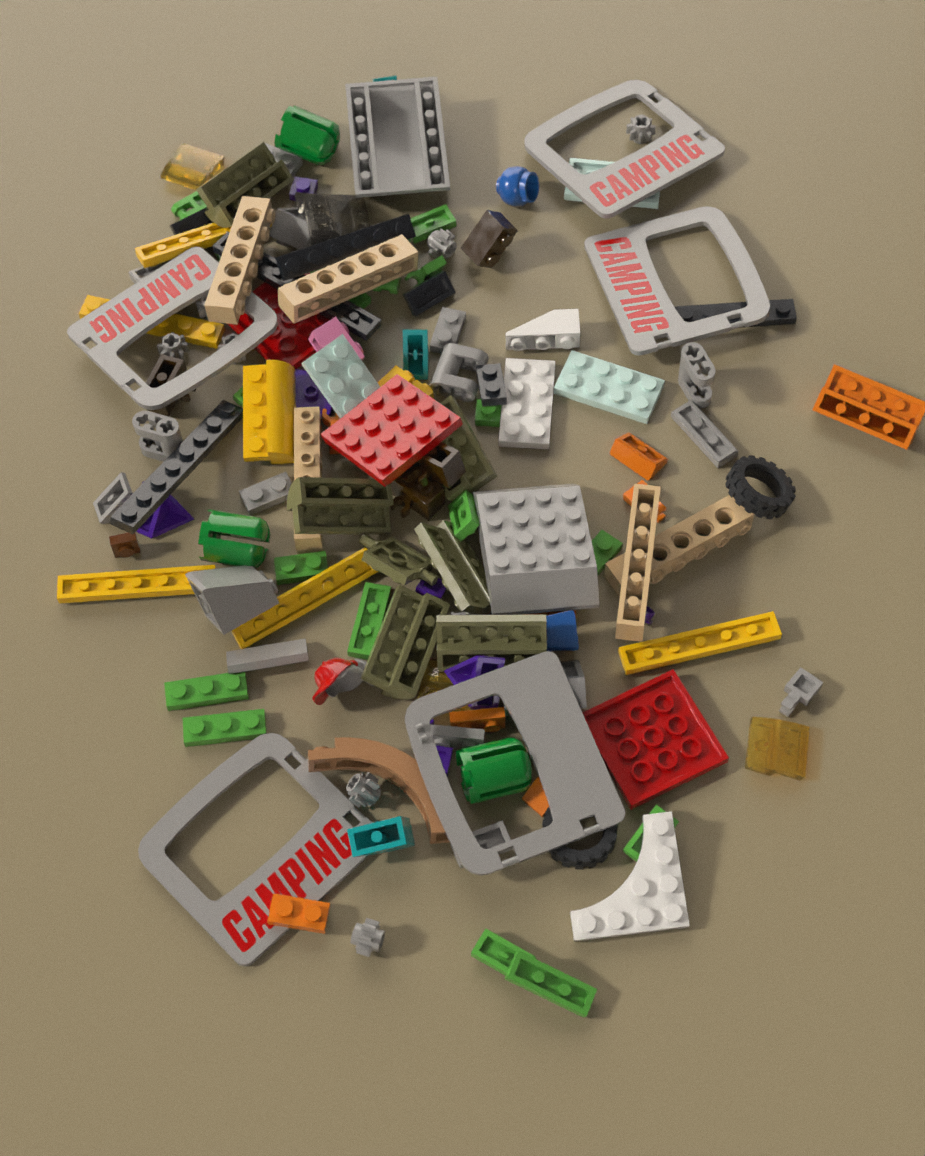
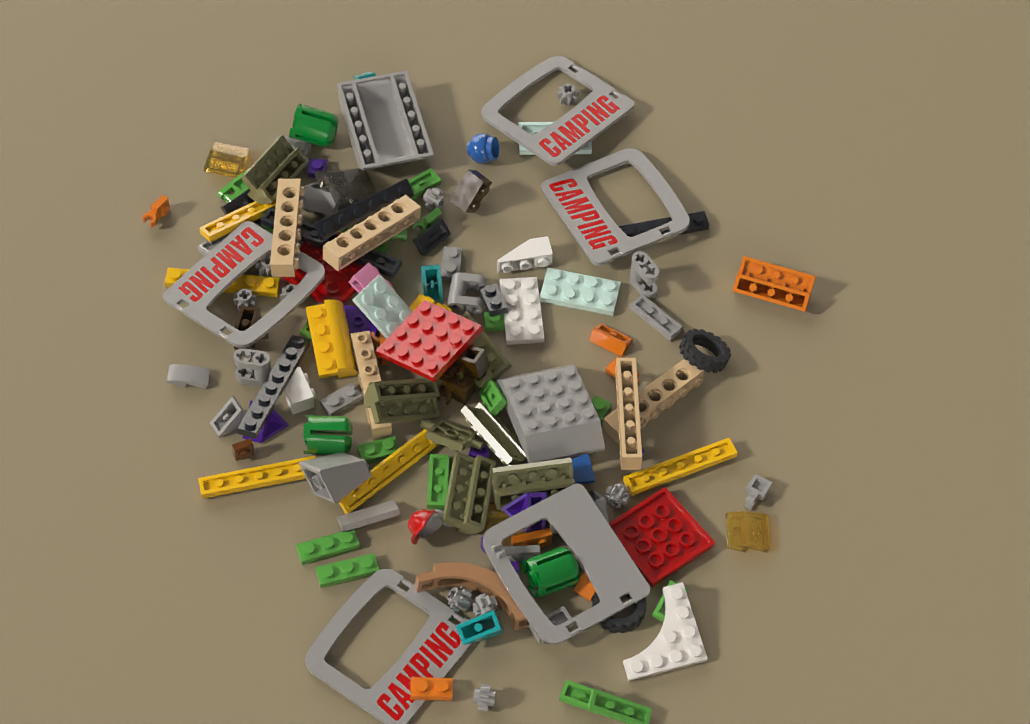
camera: 15 degrees left, 5 degrees down
(79, 436) = (187, 374): none -> light grey slope
(92, 221) = (158, 209): none -> orange plate
(212, 477) = (298, 393): none -> white slope
(395, 803) = (484, 604): none -> light grey gear
(605, 673) = (617, 496): none -> light grey gear

